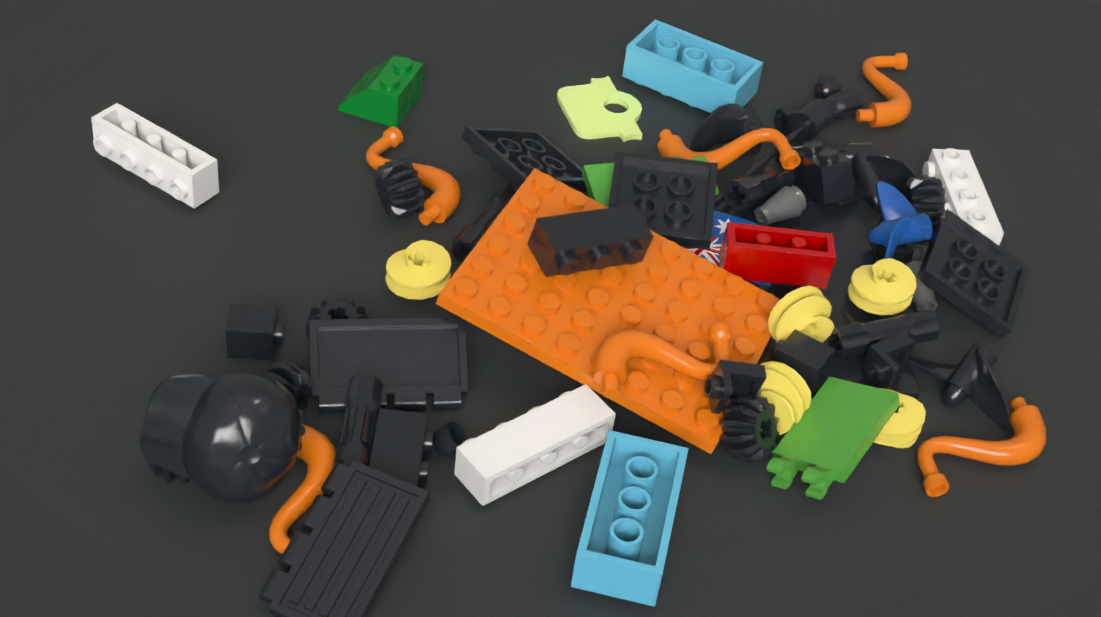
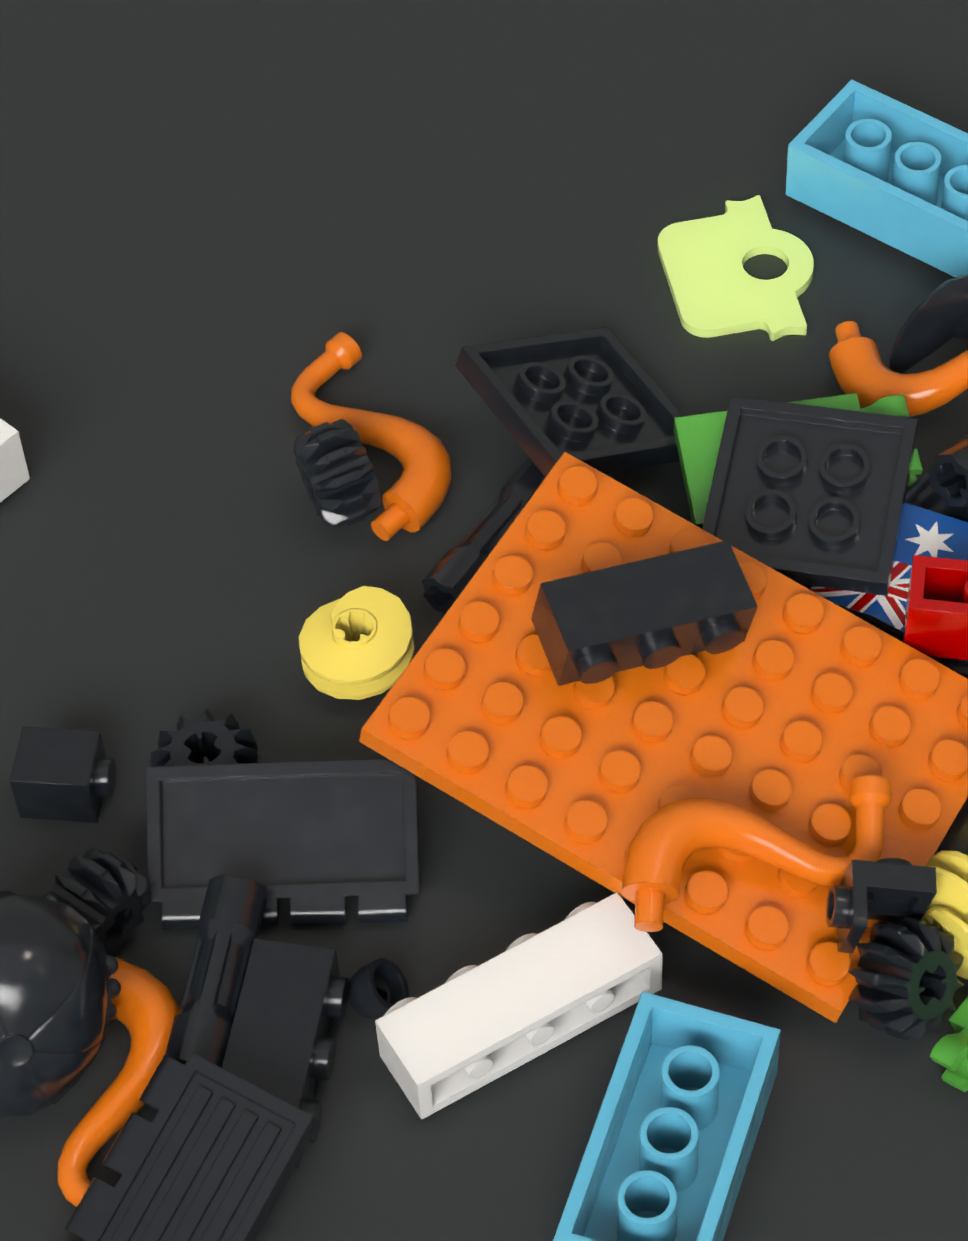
camera: 15 degrees right, 10 degrees up
(386, 91) = (339, 254): green slope -> none

